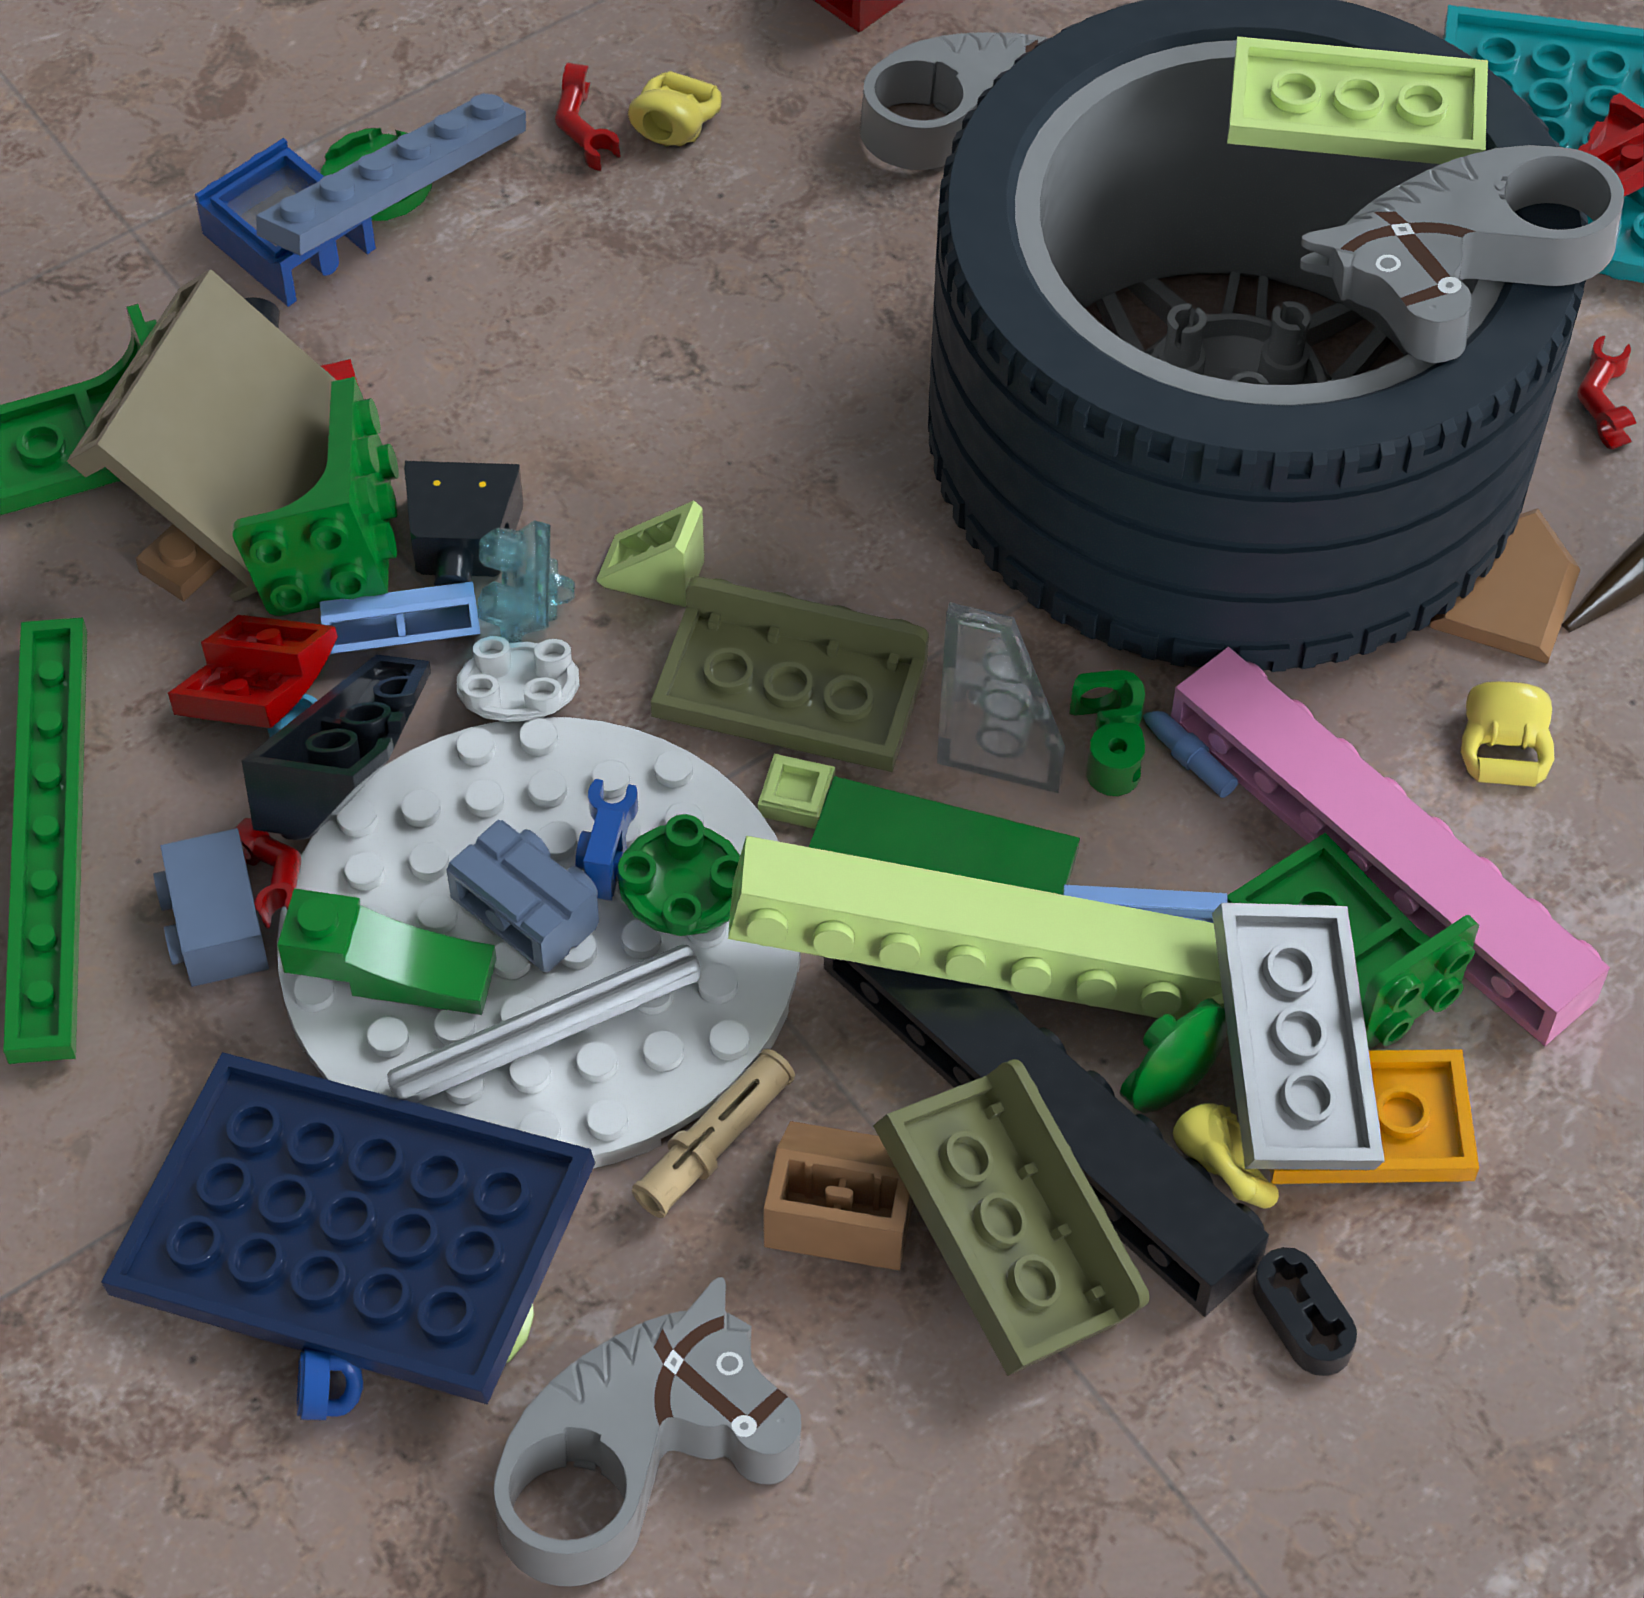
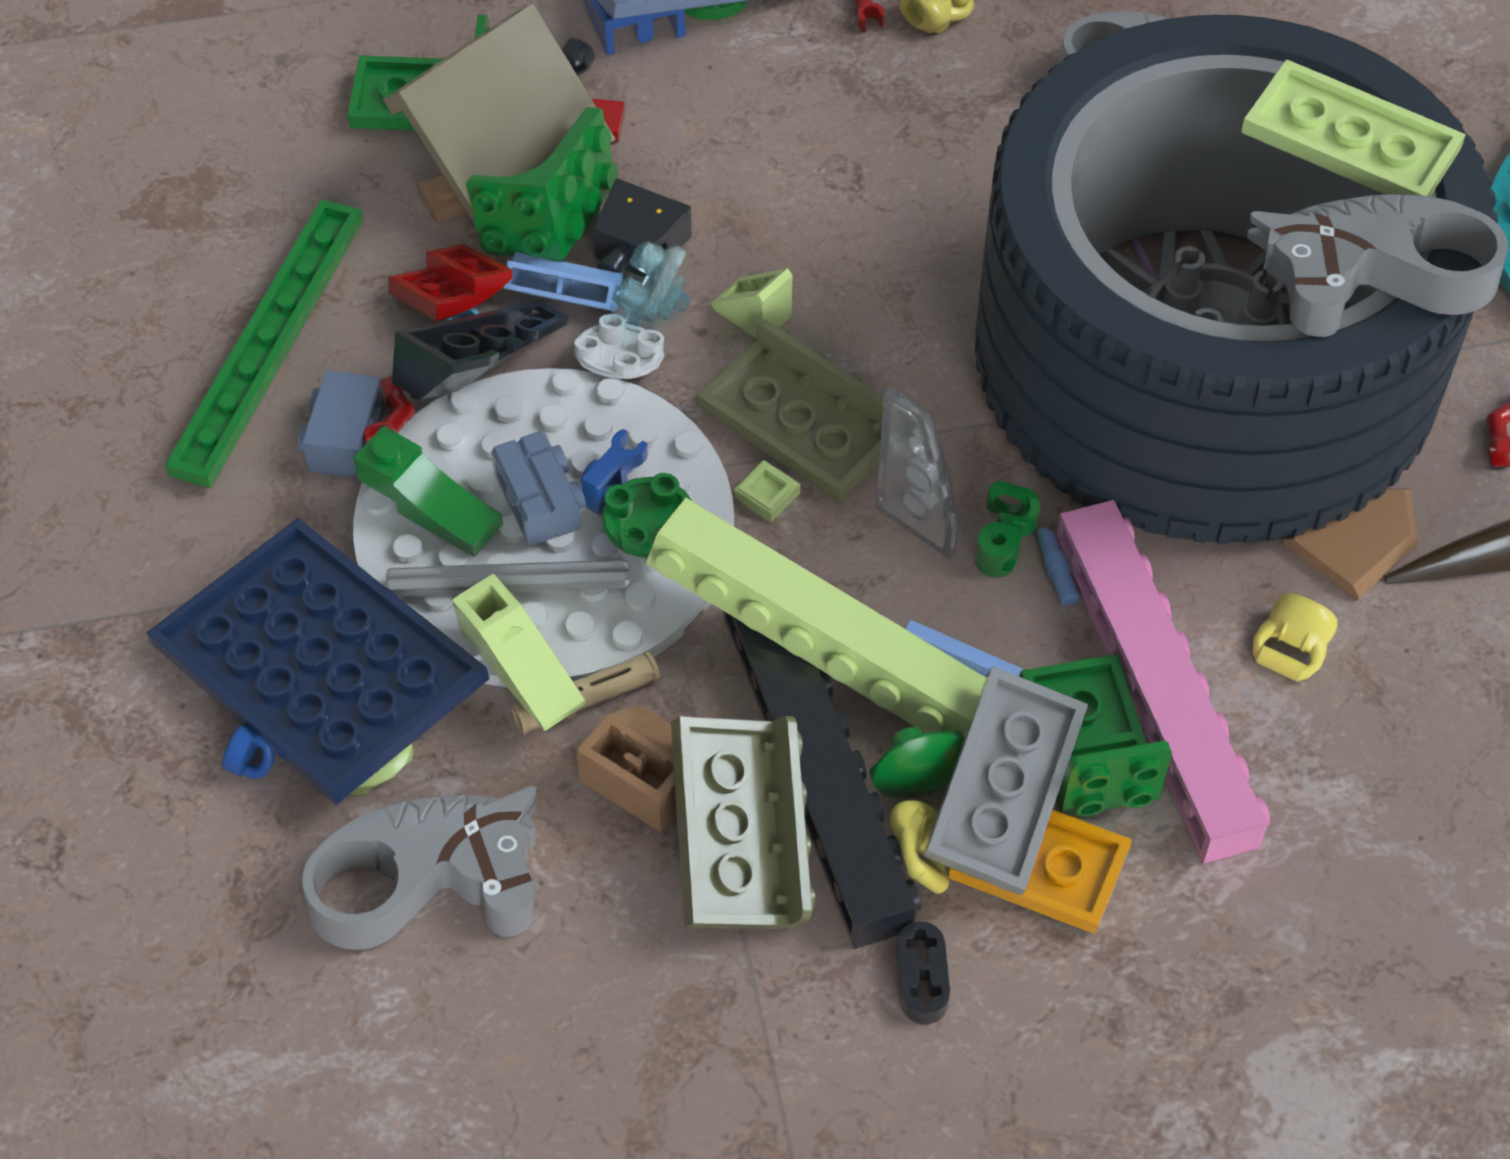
camera: 25 degrees right, 0 degrees up
(617, 1114) = (516, 651): none -> yellowish green slope
(942, 838) = (846, 560): green tile -> none

